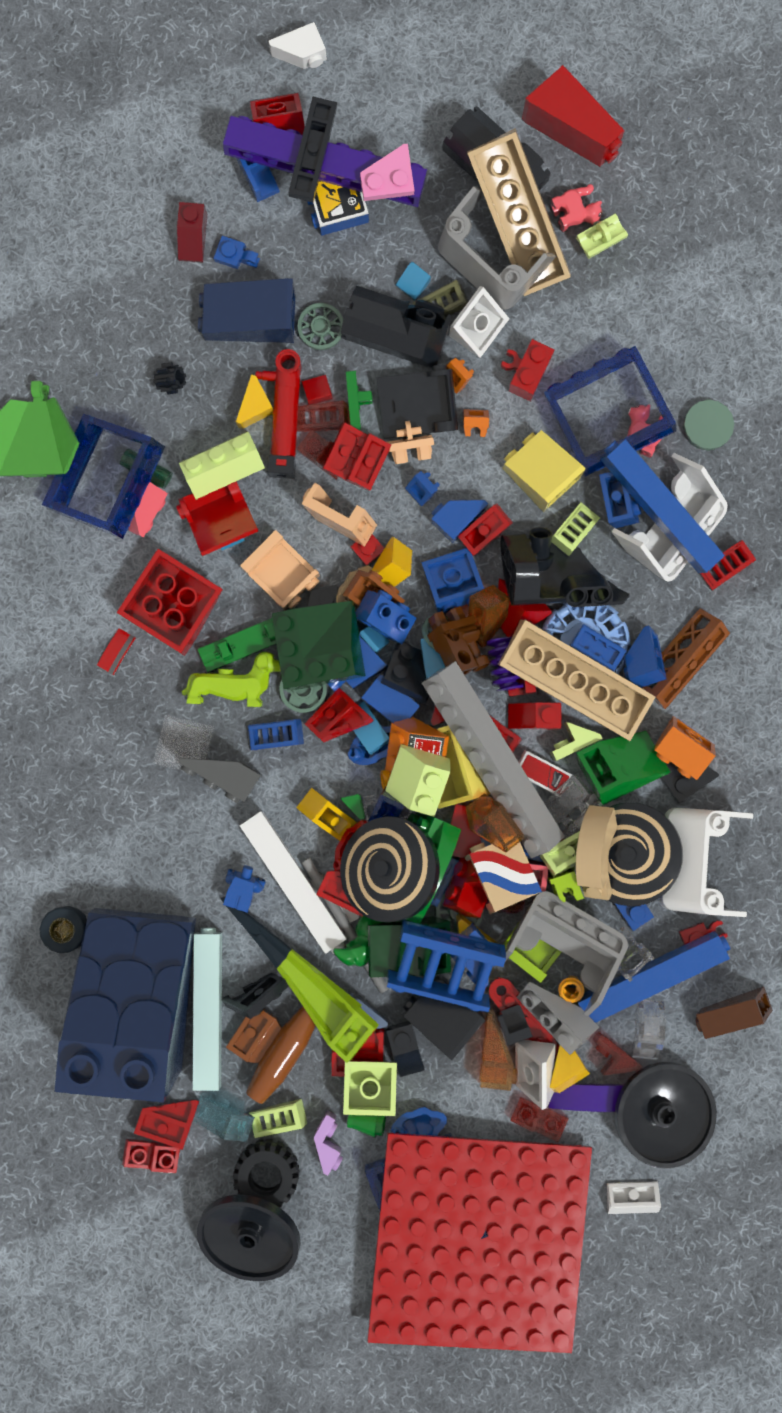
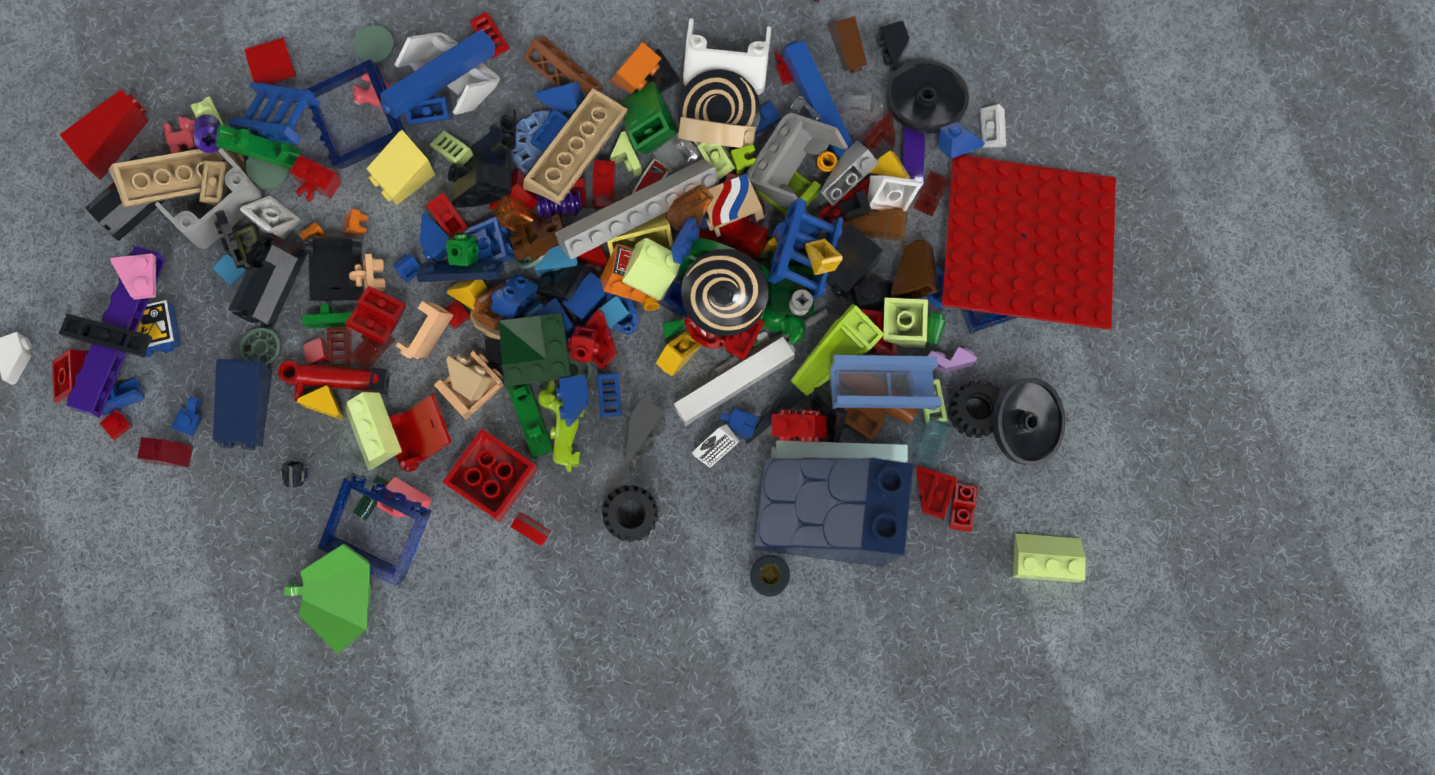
camera: 90 degrees left, 10 degrees down
(91, 1257) = (1048, 558): none -> yellowish green slope
(112, 770) = (636, 531): none -> black tyre
(212, 863) = (716, 446): none -> slope
(225, 173) = (115, 424): none -> red plate
(234, 961) = (791, 425): none -> red brick
(261, 694) = (574, 397): none -> blue slope
(285, 567) = (467, 379): none -> tan slope
(286, 1062) = (883, 382): none -> medium blue piece
(326, 702) = (583, 344): none -> red brick
(380, 956) = (798, 307): none -> light grey wheel
(416, 551) = (444, 272): none -> dark blue plate
(434, 988) = (822, 256): none -> yellow slope
(434, 1100) = (916, 272): none -> reddish brown slope
(440, 551) = (462, 249): none -> green brick
(442, 816) = (684, 240): none -> blue plate
(453, 272) = (228, 241): none -> black wing
(512, 251) = (213, 182): none -> tan slope
(539, 312) = (265, 174): none -> sand green tile
(559, 298) = (256, 147): none -> green hinge
(572, 238) = (205, 133): none -> dark purple piece
(581, 313) = (273, 130): none -> blue fence
(607, 1154) = (957, 140): none -> blue slope
(678, 302) = (270, 62): none -> red slope
(740, 1072) = (894, 41): none -> black slope

